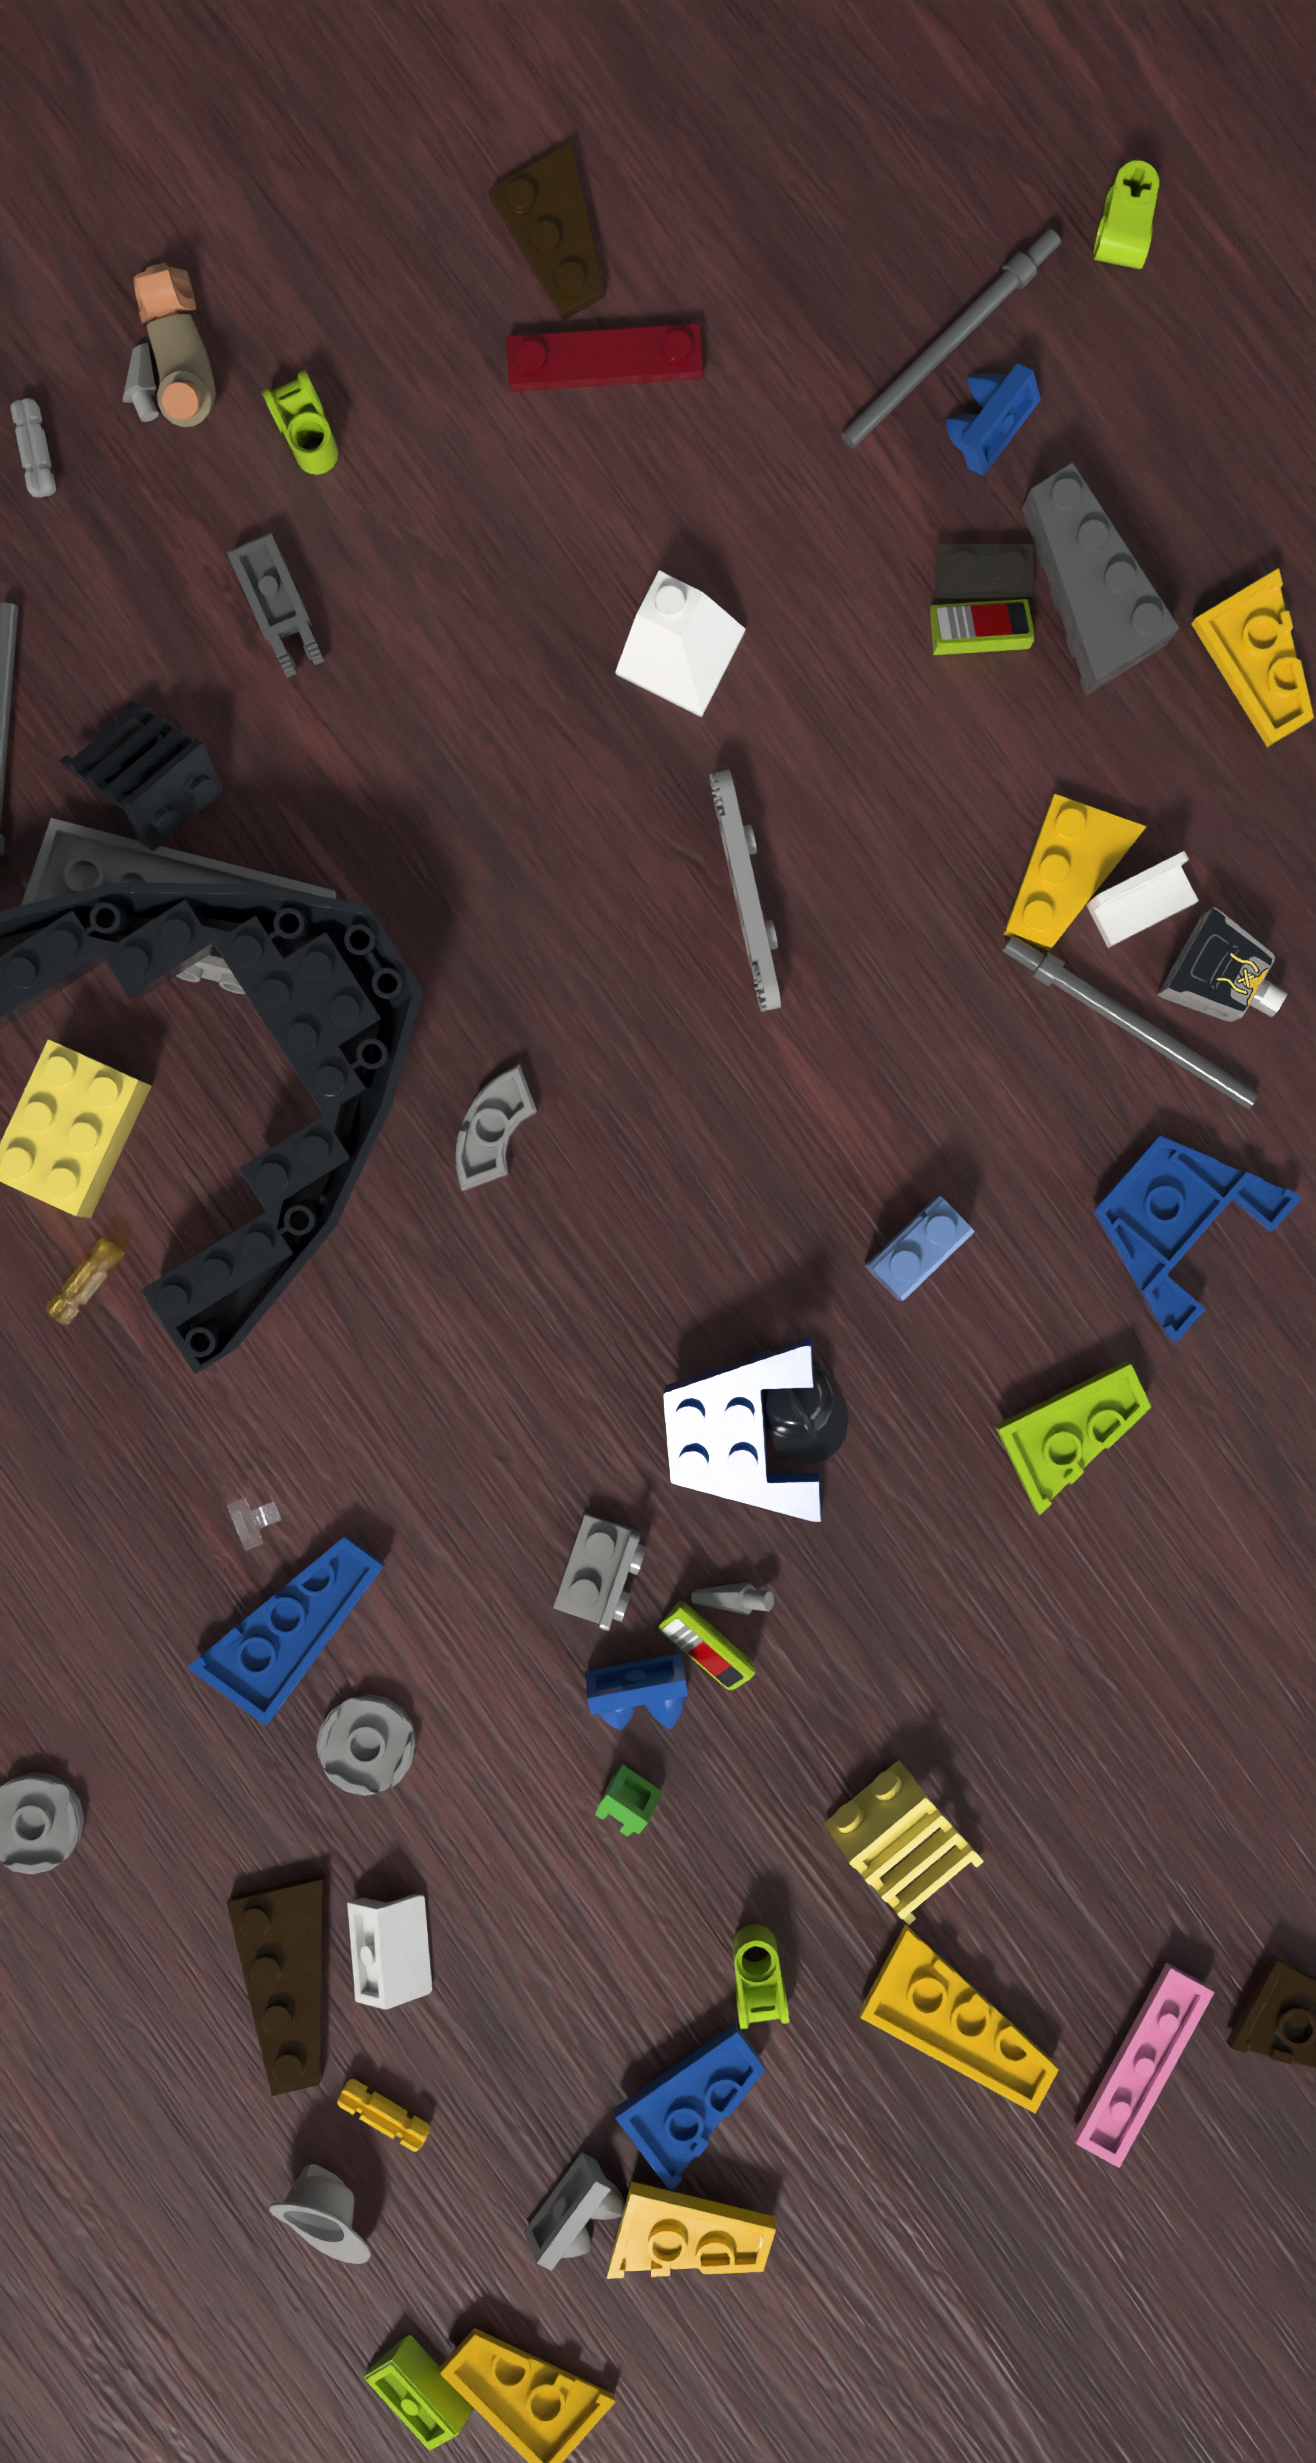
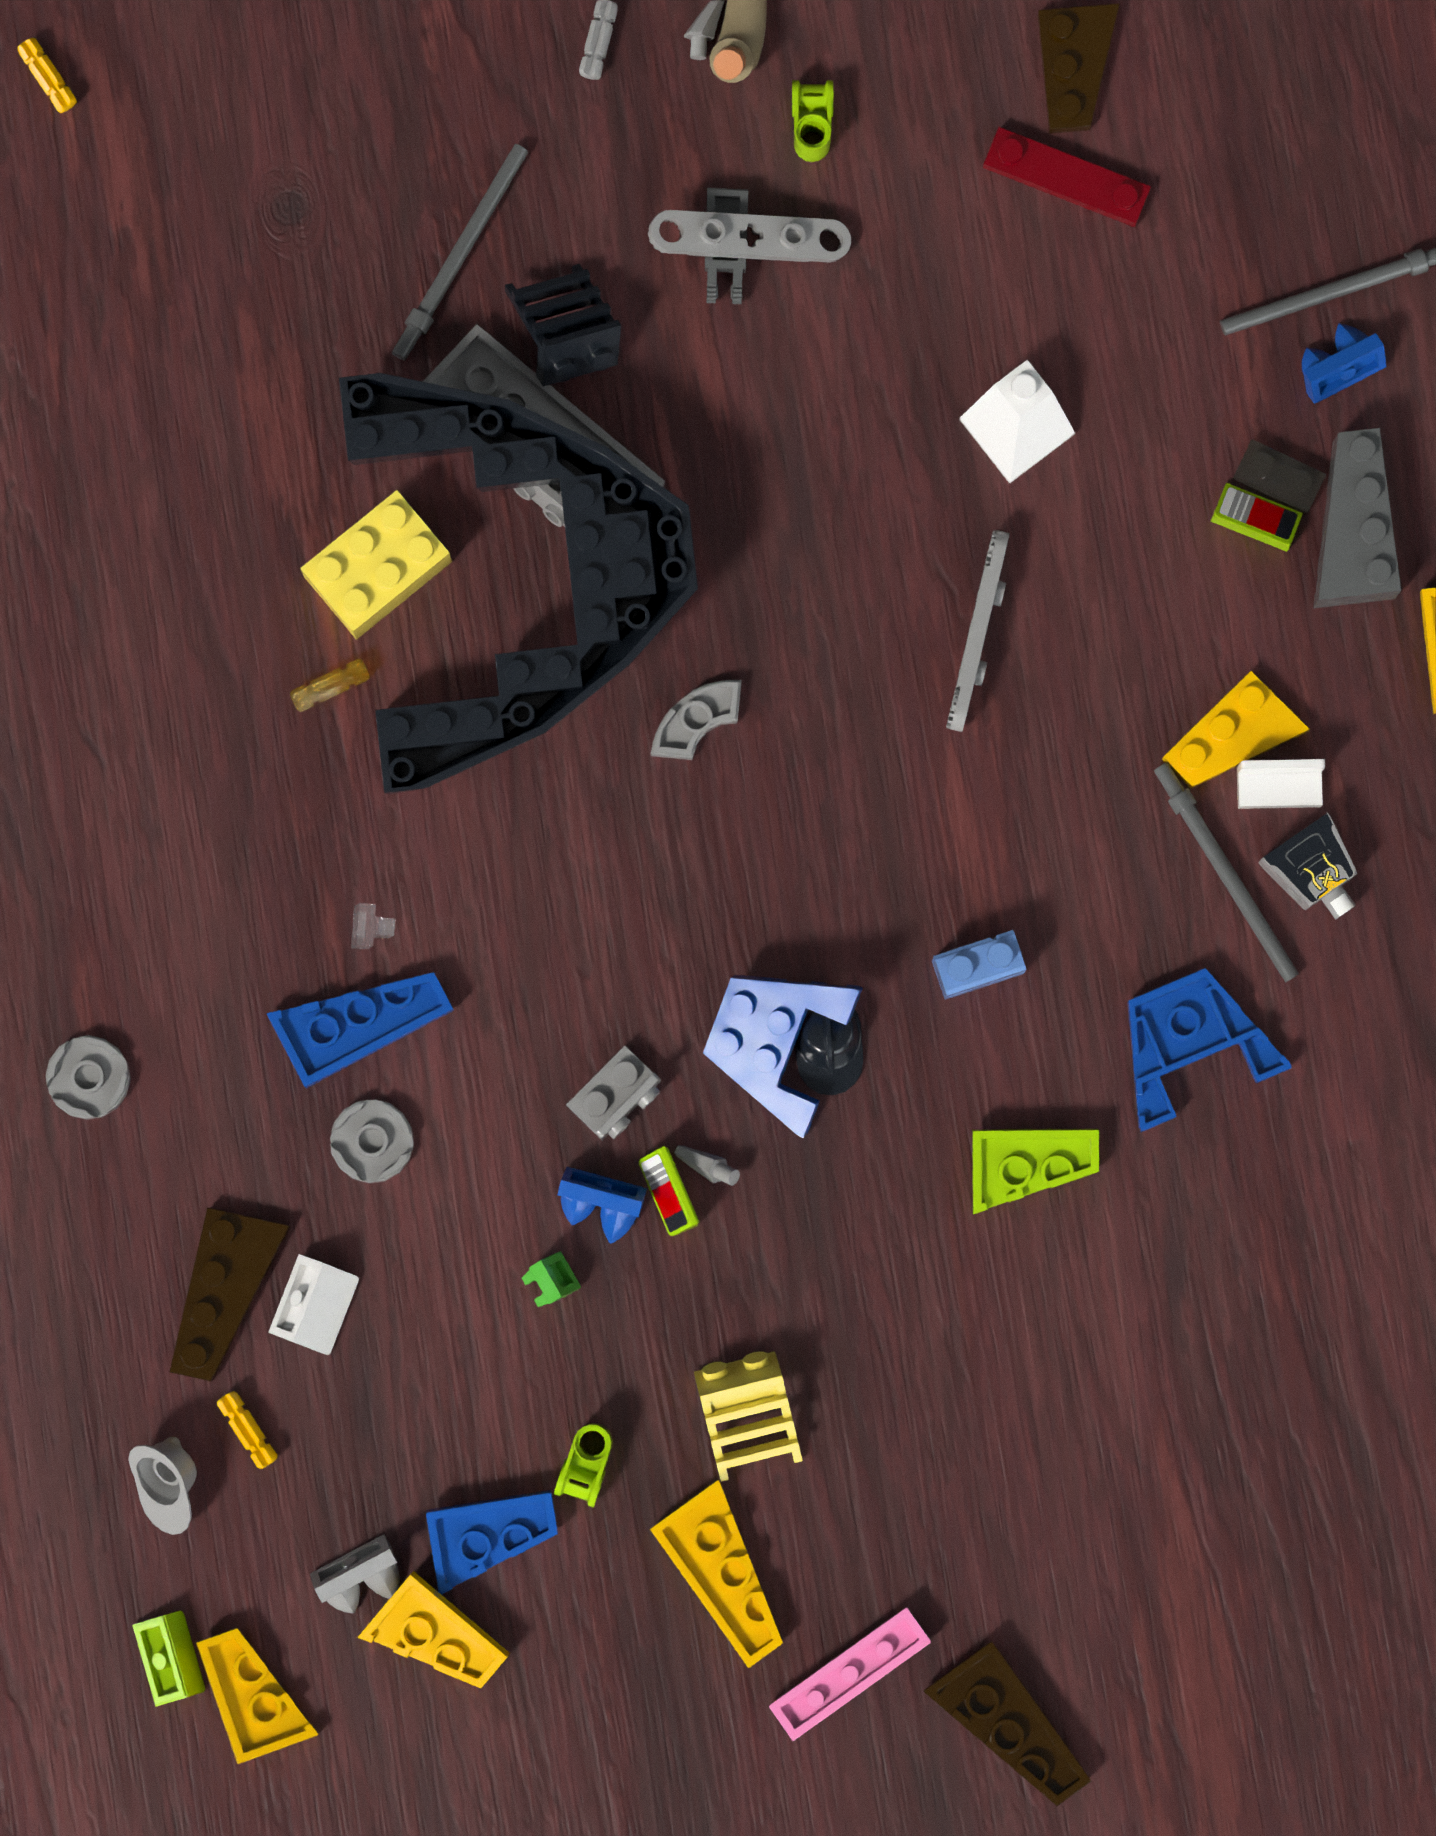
camera: 20 degrees right, 5 degrees down
(261, 592) = (719, 236): none -> light grey piece

